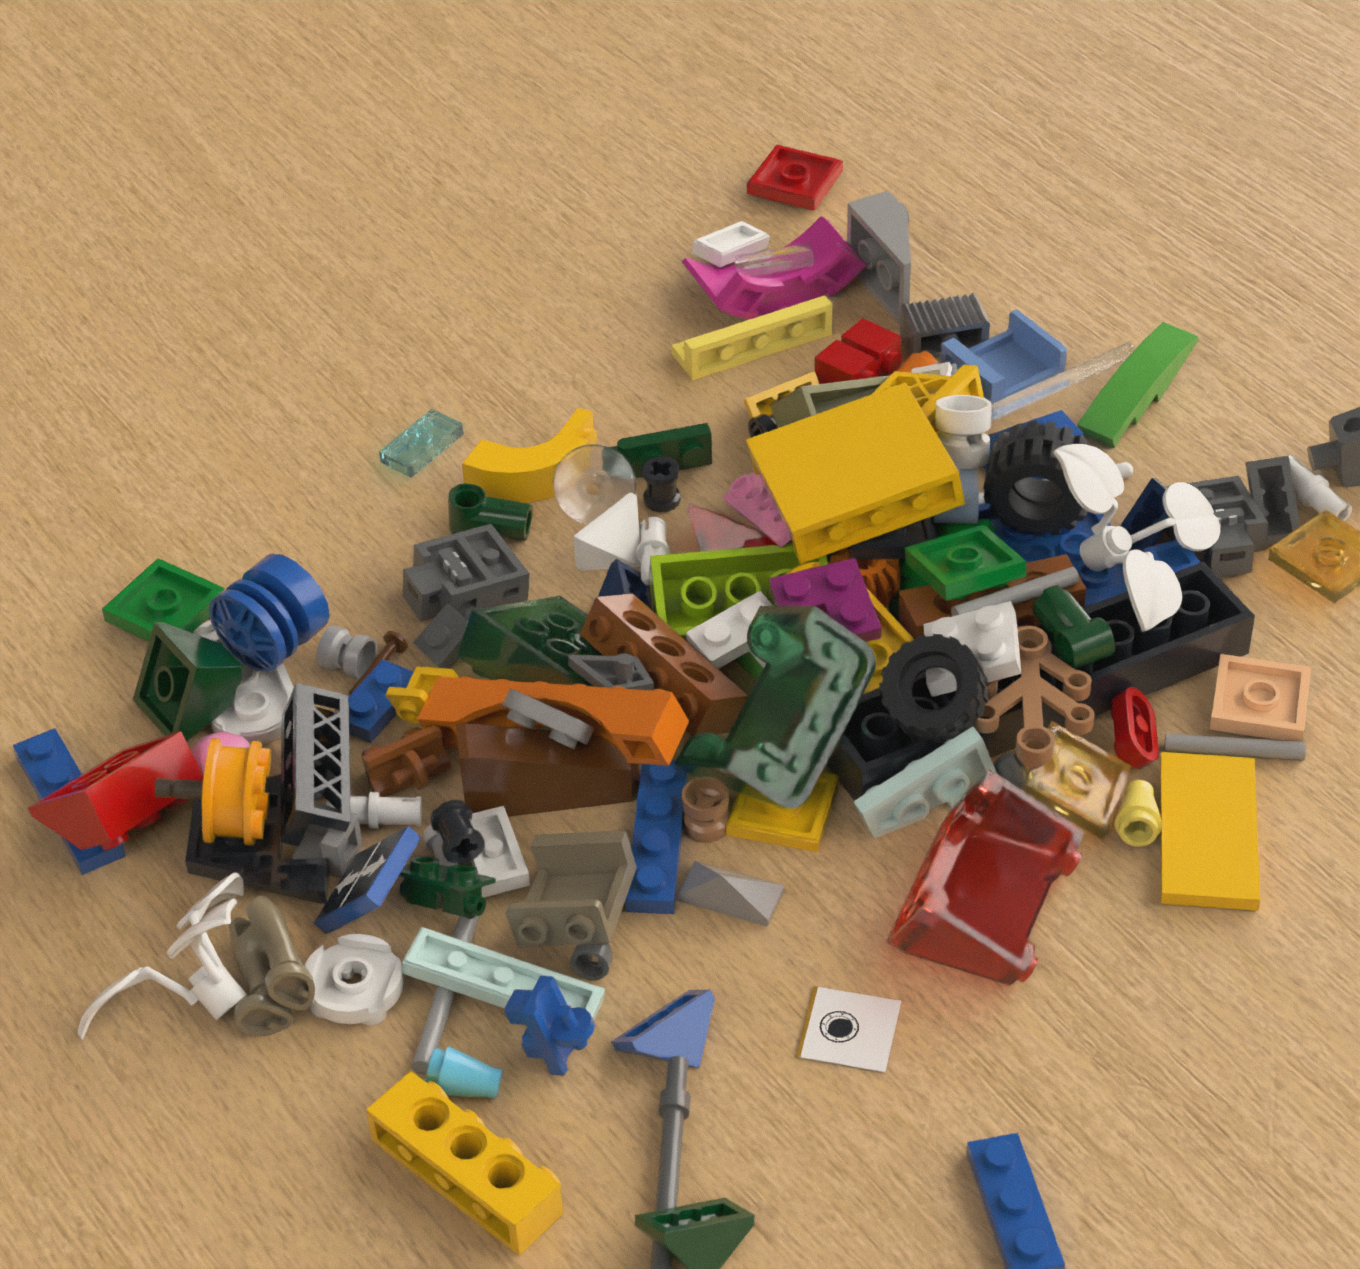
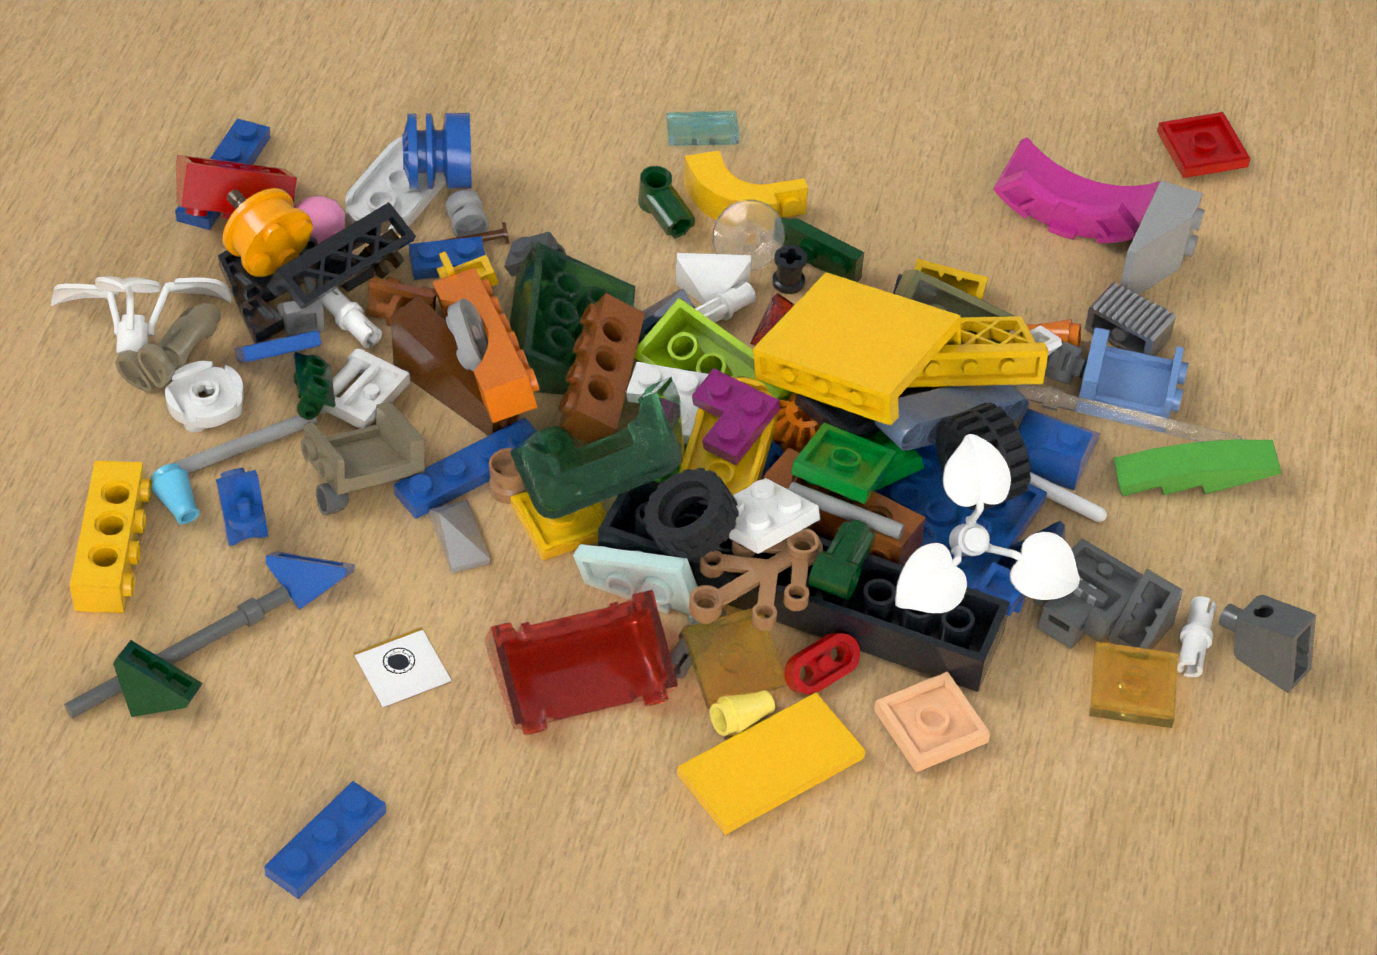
camera: 45 degrees right, 5 degrees up
(161, 595) = (418, 96): green plate -> none
(185, 680) = (356, 157): dark green slope -> none
(459, 837) = (353, 361): black bush -> none
(466, 571) = (596, 225): dark grey piece -> none
(487, 973) = (265, 453): light aqua tile -> none
(612, 671) = (551, 347): dark grey piece -> none
(729, 242) = (1084, 155): white tile -> none
(755, 338) = (1001, 228): light yellow fence -> none
(775, 260) = (1077, 184): clear tile -> none
(862, 353) = (1050, 303): red piece -> none
(962, 429) = (968, 379): white wheel -> none
(1235, 746) = (872, 735): light grey bar -> none

